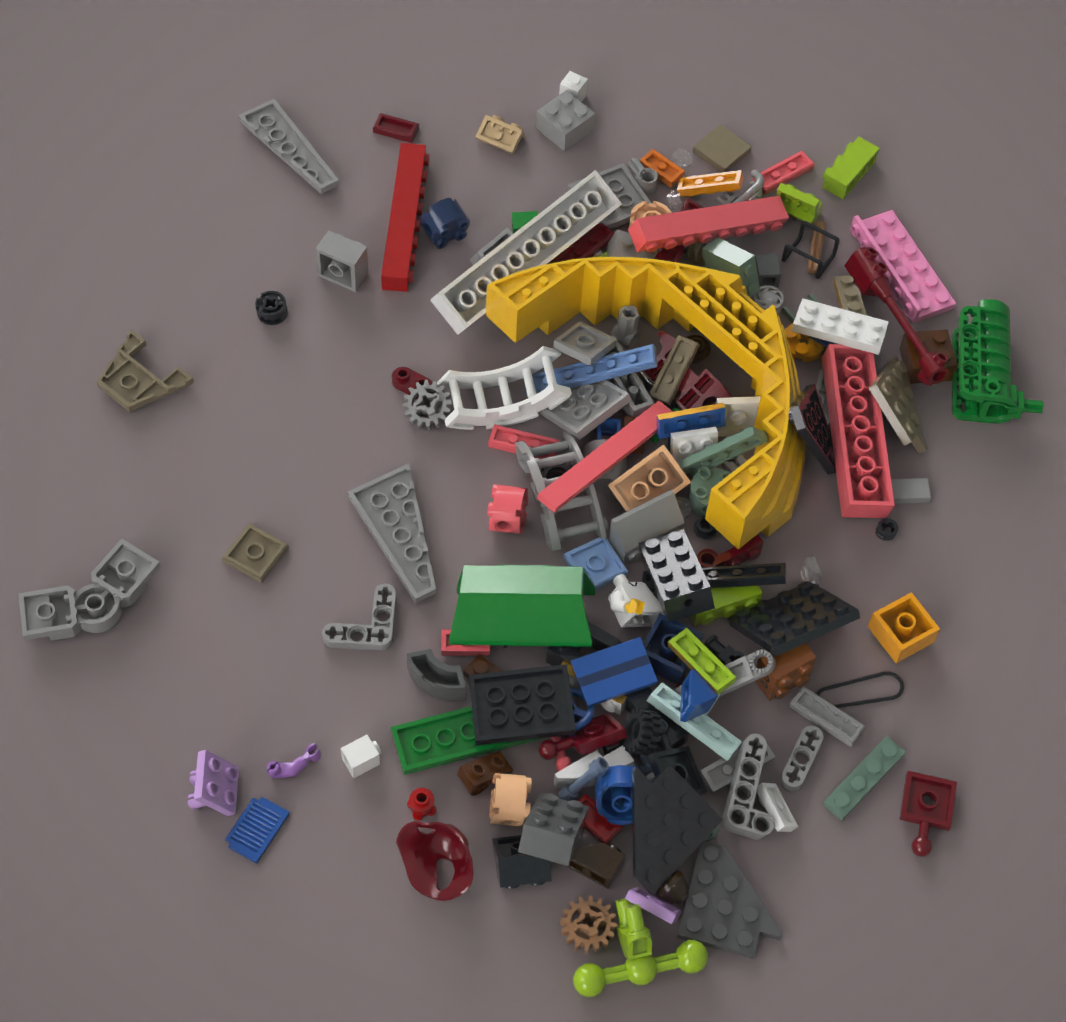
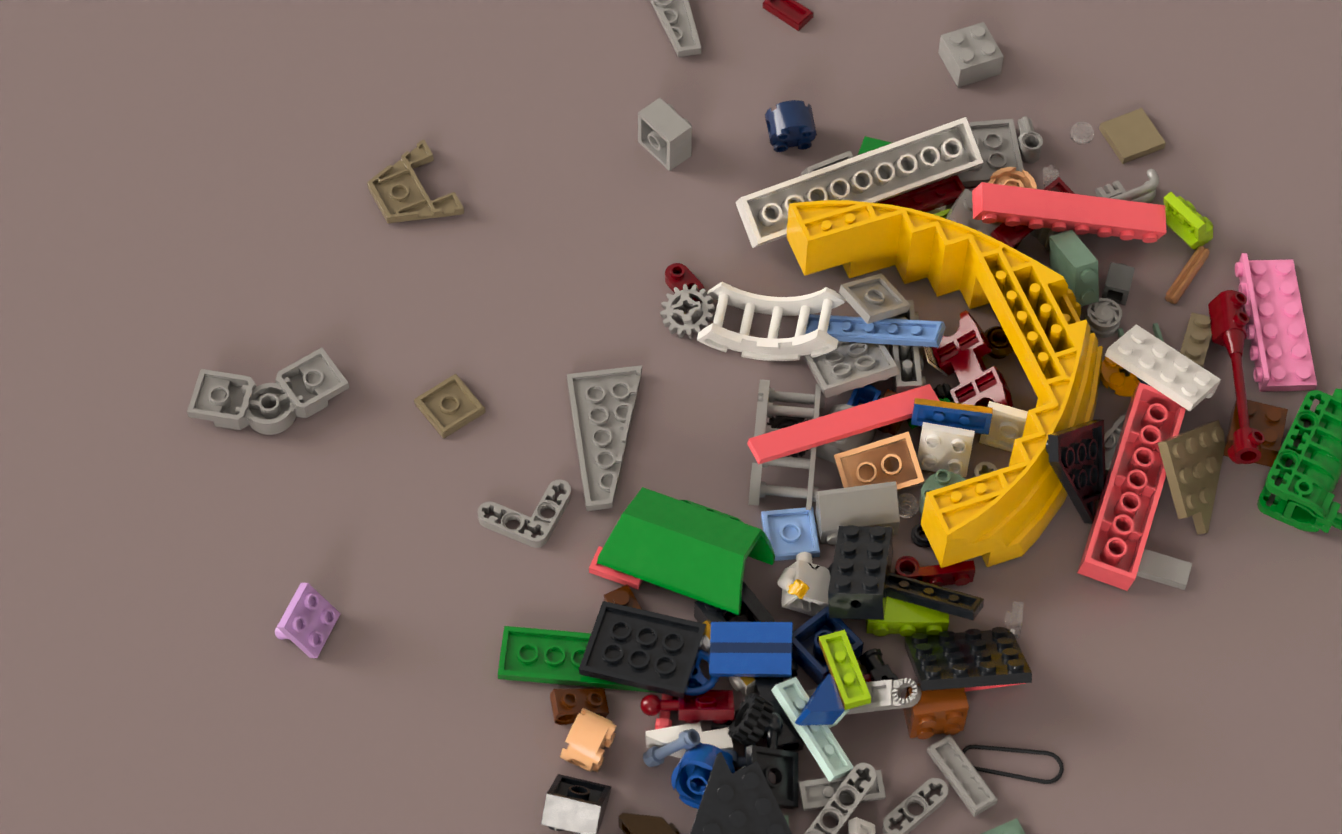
camera: 25 degrees right, 0 degrees up
(256, 828) = (332, 679): blue window -> none
(271, 307) = (574, 160): black wheel -> none
(292, 769) = (389, 633): medium lavender arm -> none
(361, 756) = (463, 644): white brick -> none
(404, 217) = (749, 110): red brick -> none
(421, 809) = (502, 713): red brick -> none
(422, 852) = (481, 762): dark red piece -> none
(436, 677) = (570, 592): dark grey brick -> none
(500, 134) = (893, 49): tan bracket -> none
(505, 438) = (754, 370): coral tile -> none
(508, 509) = (721, 446): coral brick -> none
(553, 829) = (616, 784): dark grey brick -> none
(575, 85) = (997, 21): white brick -> none
(597, 824) = (668, 797): red tile -> none
(626, 327) = (932, 297): light grey piece -> none
(667, 171) = (1054, 137): orange plate -> none
(674, 370) = (960, 356): dark tan tile -> none
(710, 183) = (1097, 169): light orange plate -> none
(725, 450) = (969, 458): sand green plate -> none
(786, 171) = (1192, 181): coral tile -> none
(820, 270) = (1157, 270): black piece -> none
(850, 167) = (1266, 198): lime brick -> none
(883, 524) = (1122, 595): black bush -> none
(903, 627) = (1086, 711): light orange brick -> none

